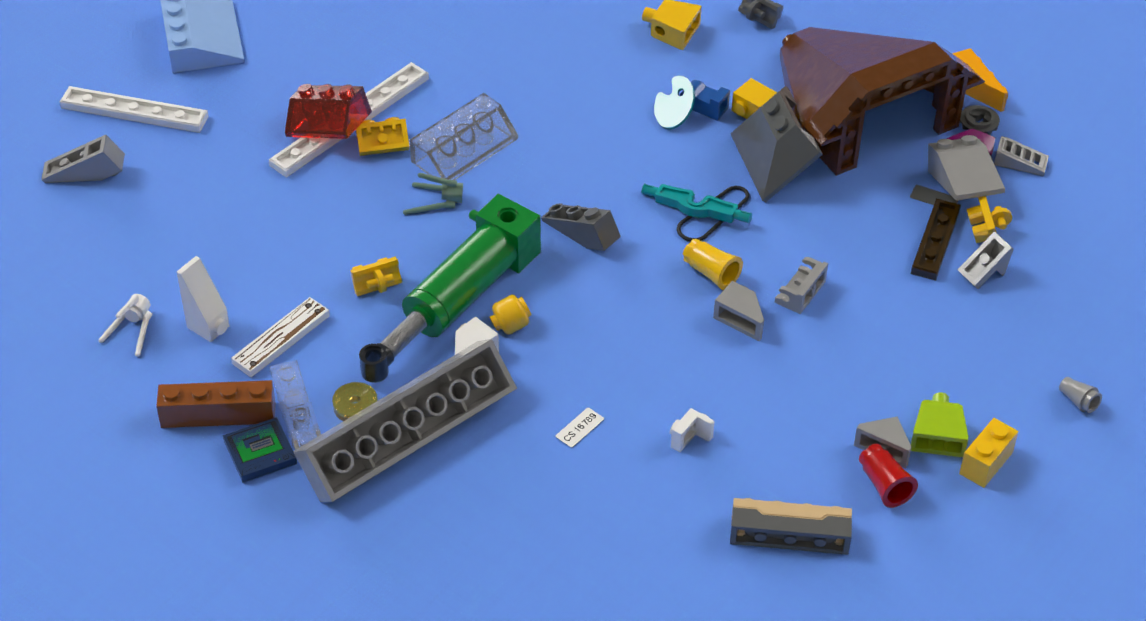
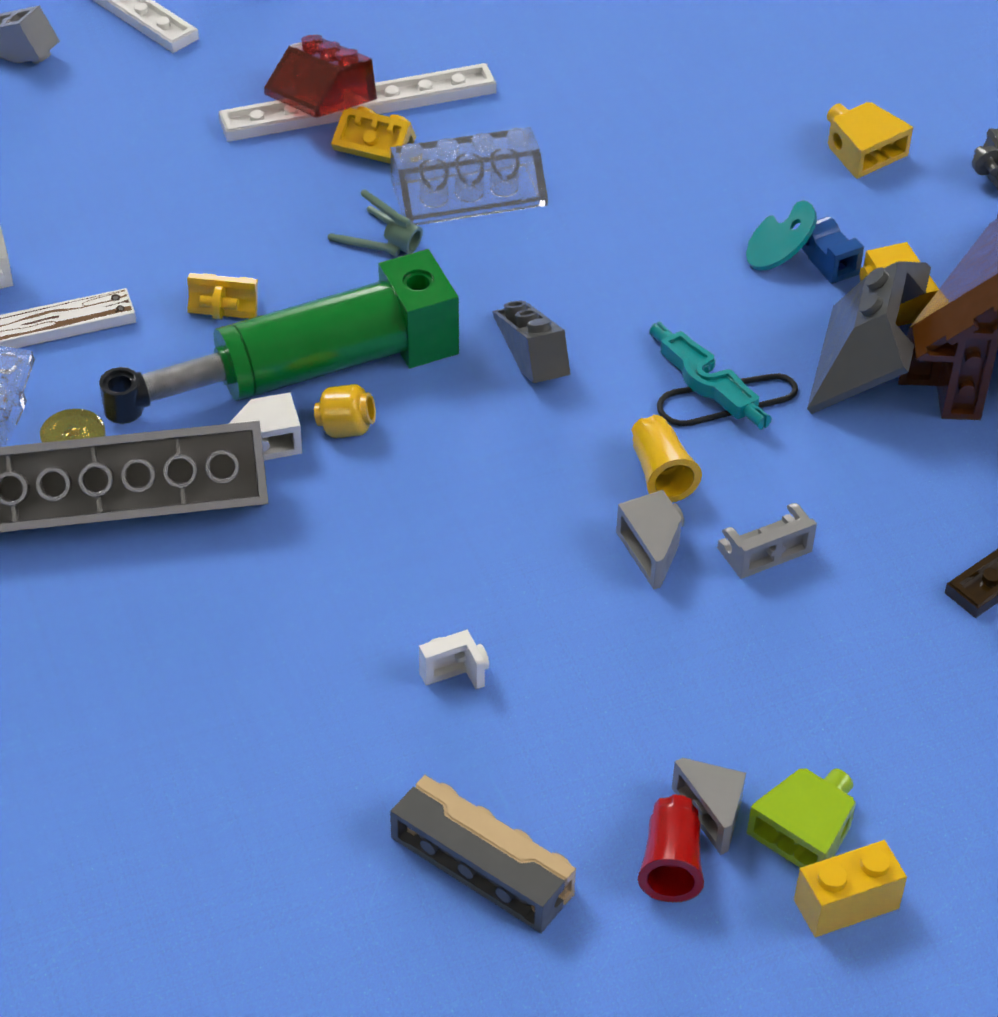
camera: 30 degrees right, 0 degrees up
(579, 427) = (322, 593): white sticker -> none

